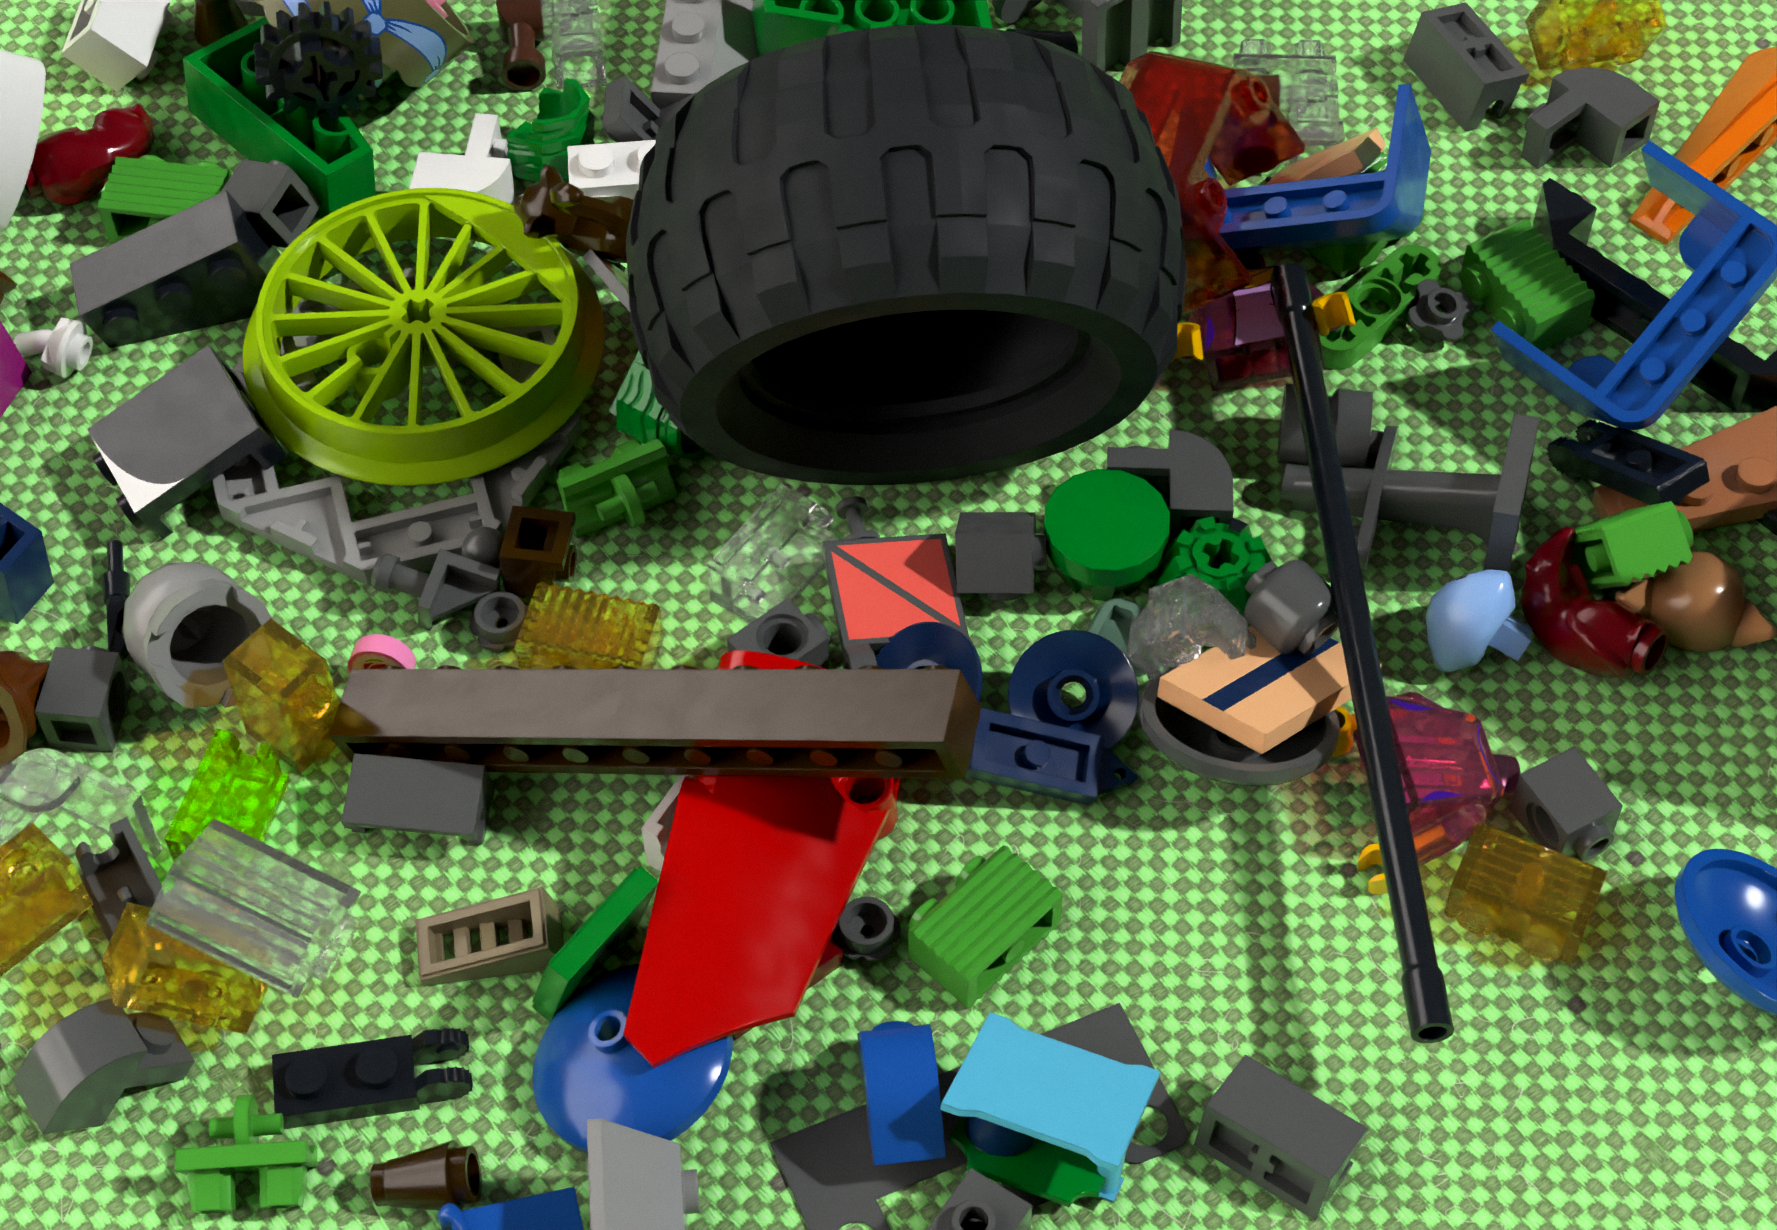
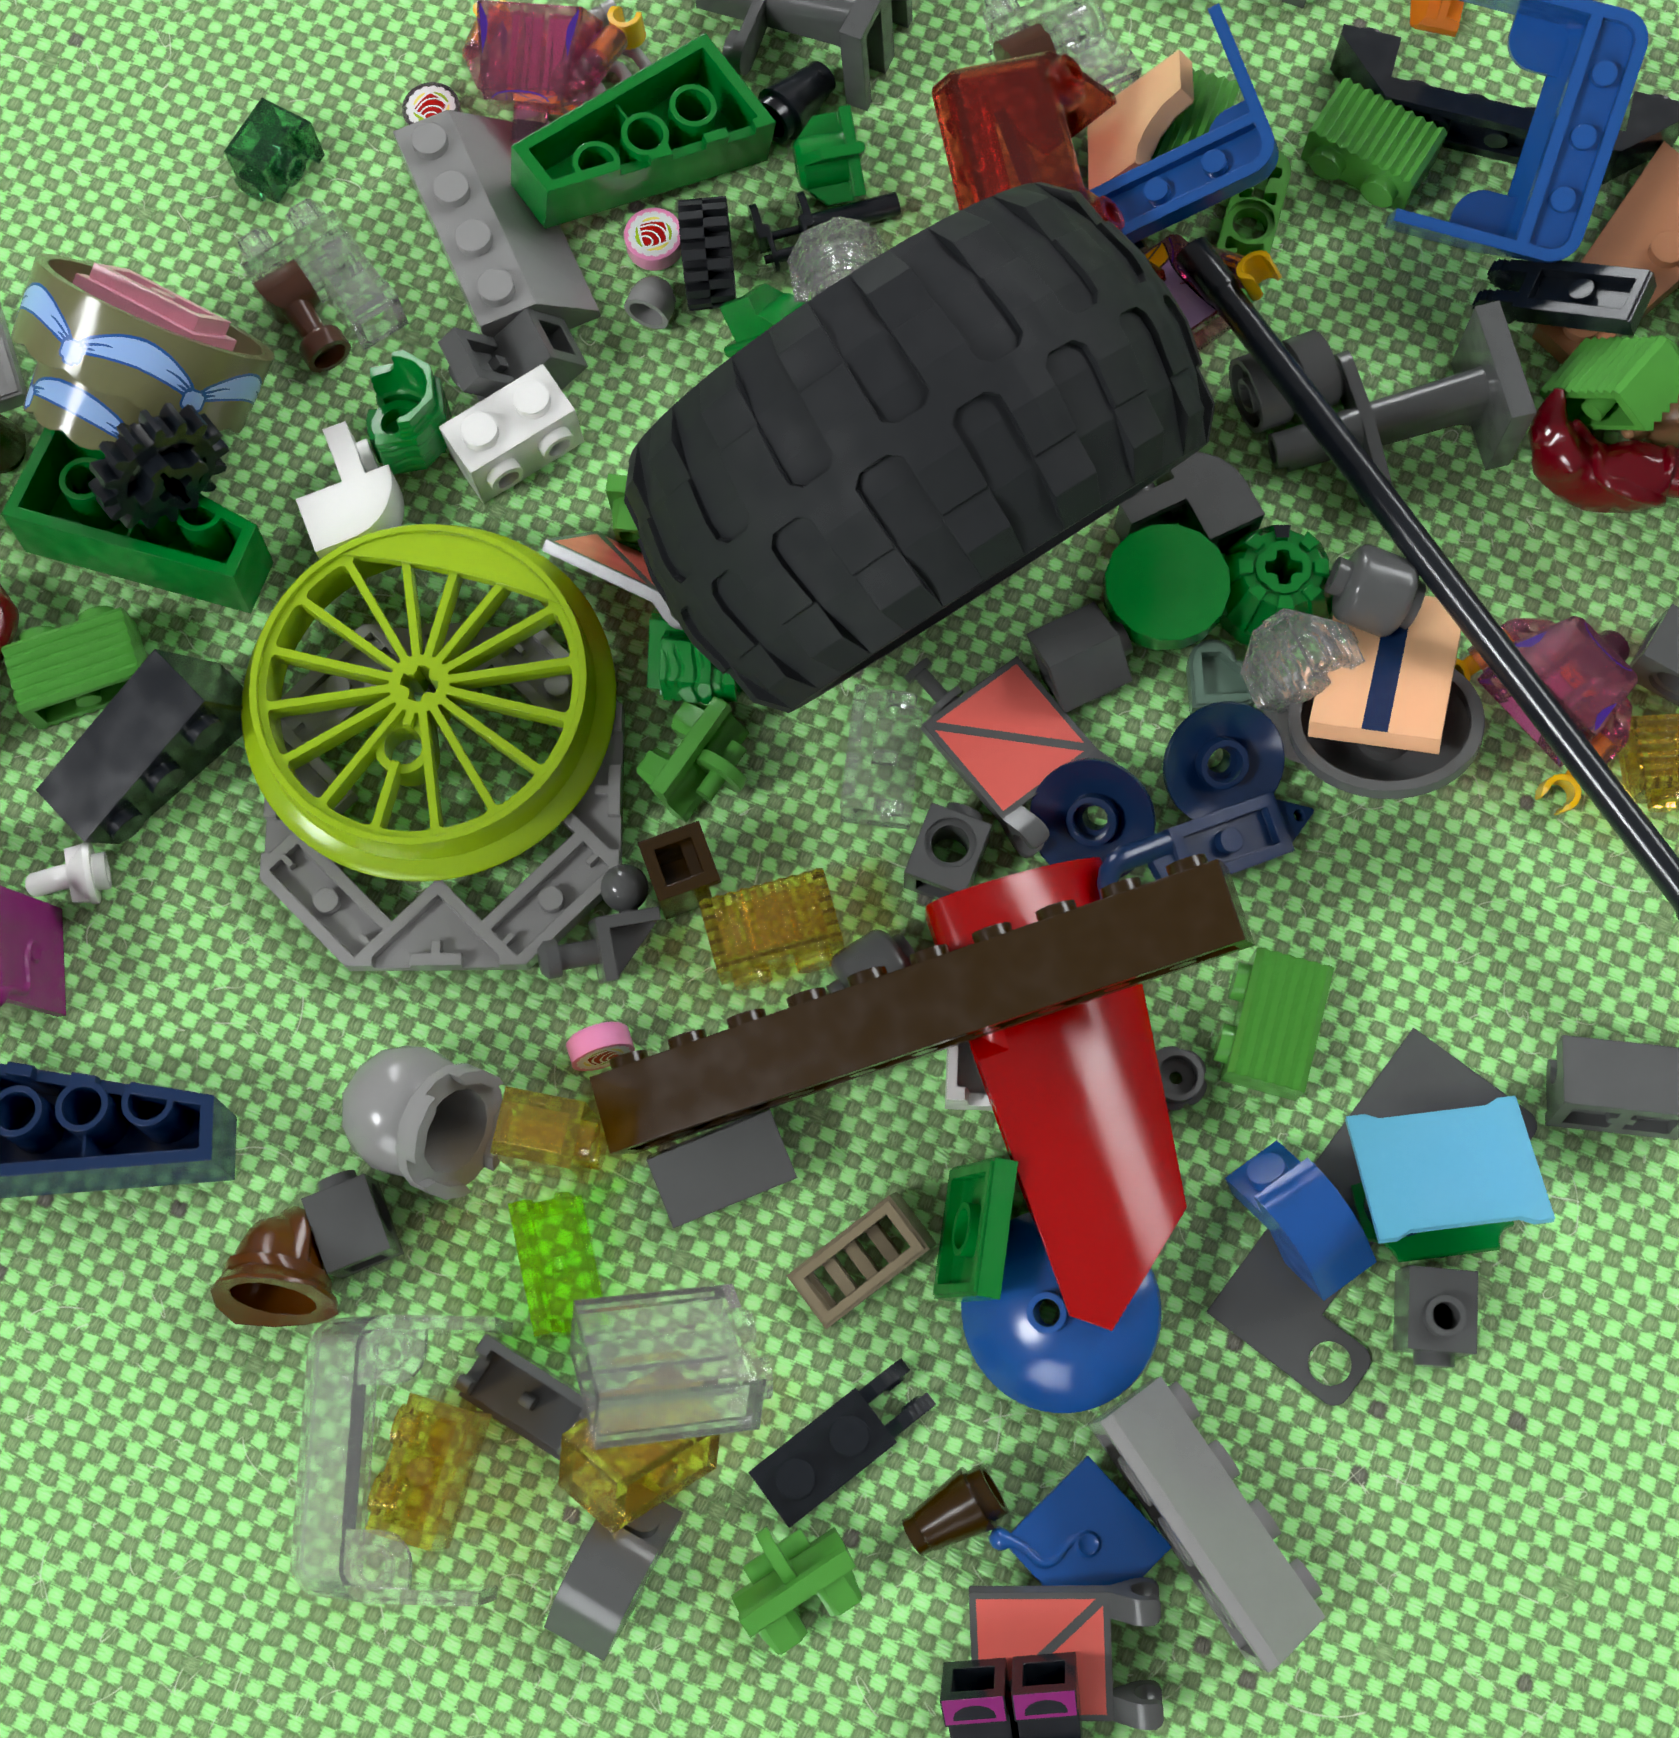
camera: 25 degrees left, 20 degrees up
(115, 592) = (308, 1104): black hand -> none
(180, 438) = (272, 922): panel -> none
(273, 199) = (184, 622): dark grey brick -> none
(495, 610) = (675, 930): dark grey plate -> none
(576, 220) = (535, 511): dark brown animal -> none
(1431, 322) = (1302, 219): dark grey plate -> none
(1472, 615) = (1517, 515): light blue piece -> none

